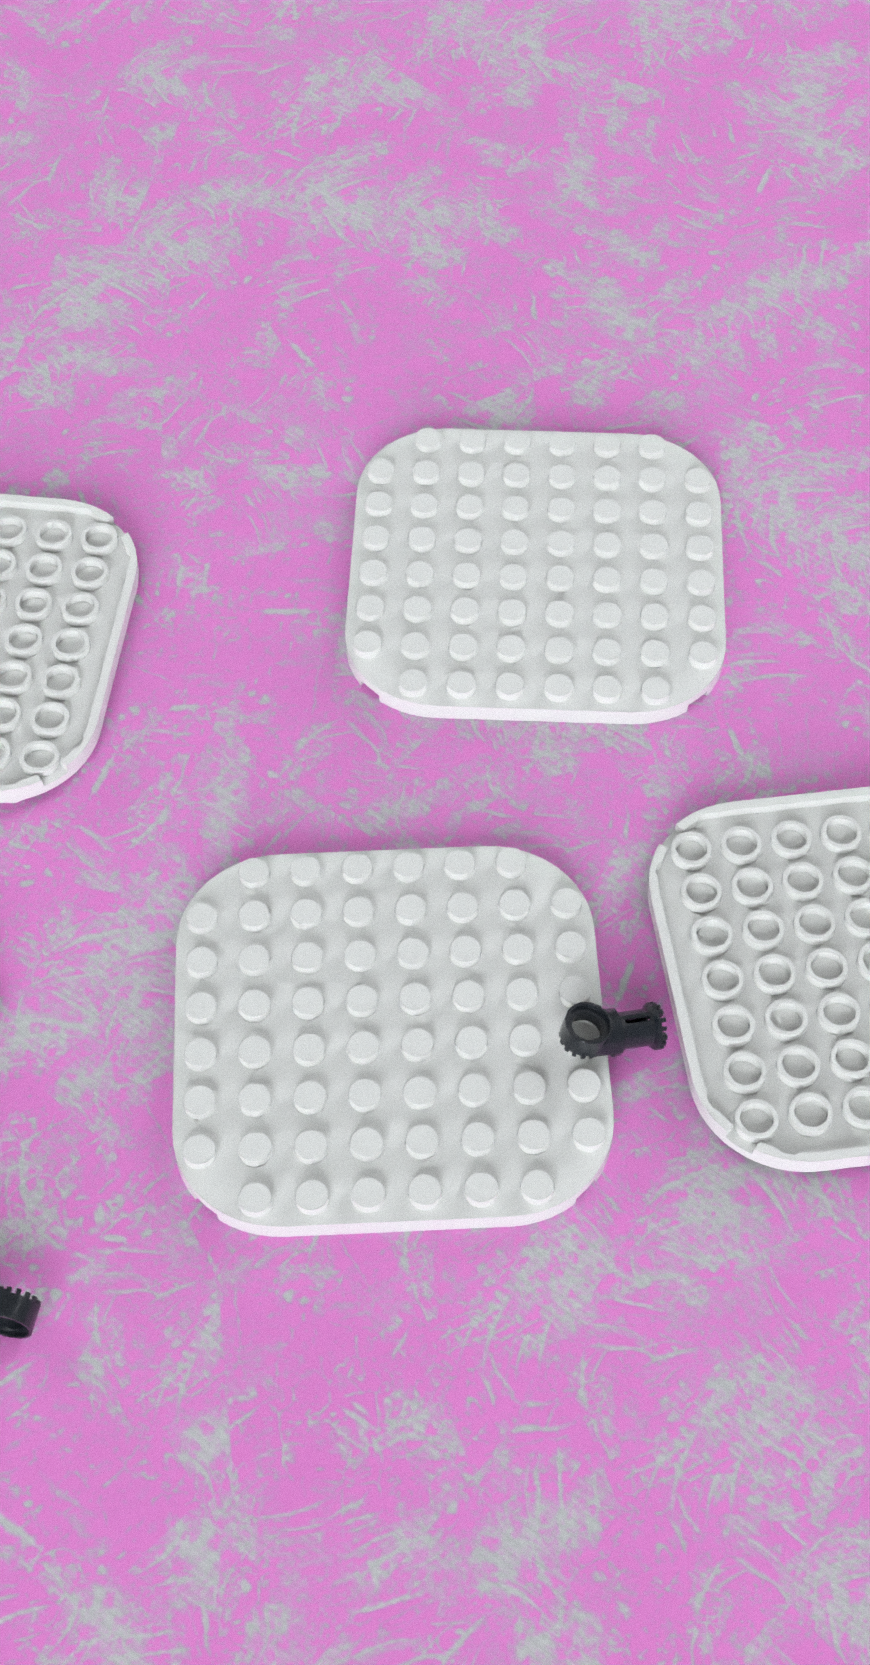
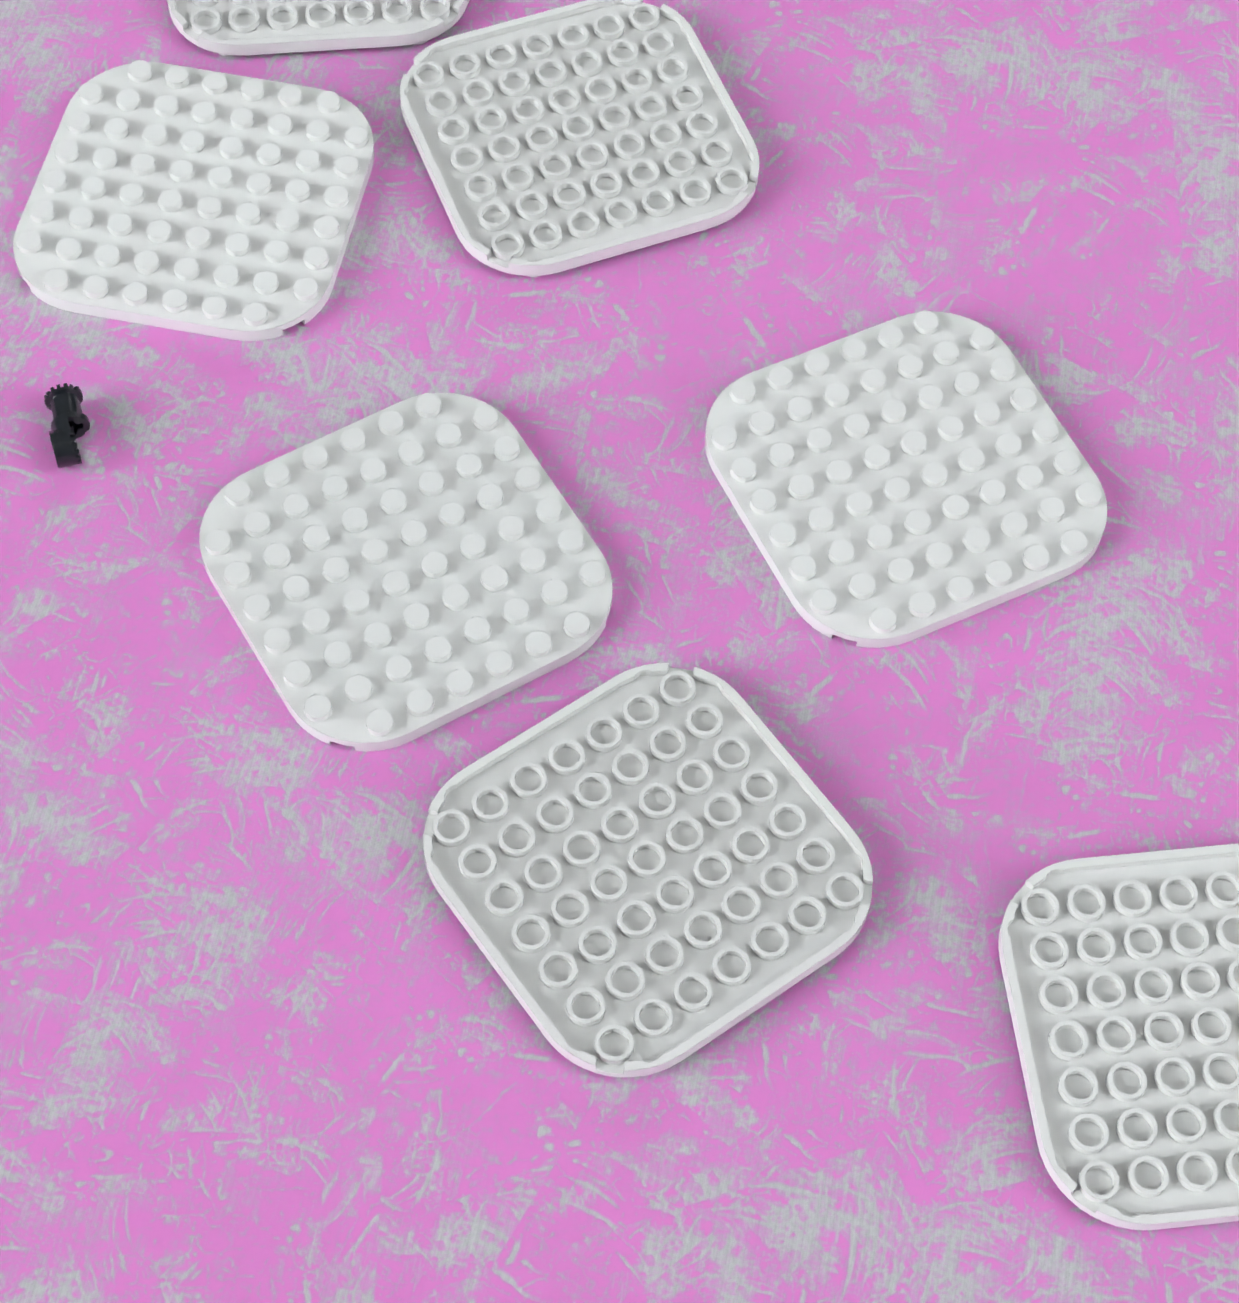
camera: 60 degrees right, 5 degrees up
(616, 1029) = (475, 699): black connector -> none

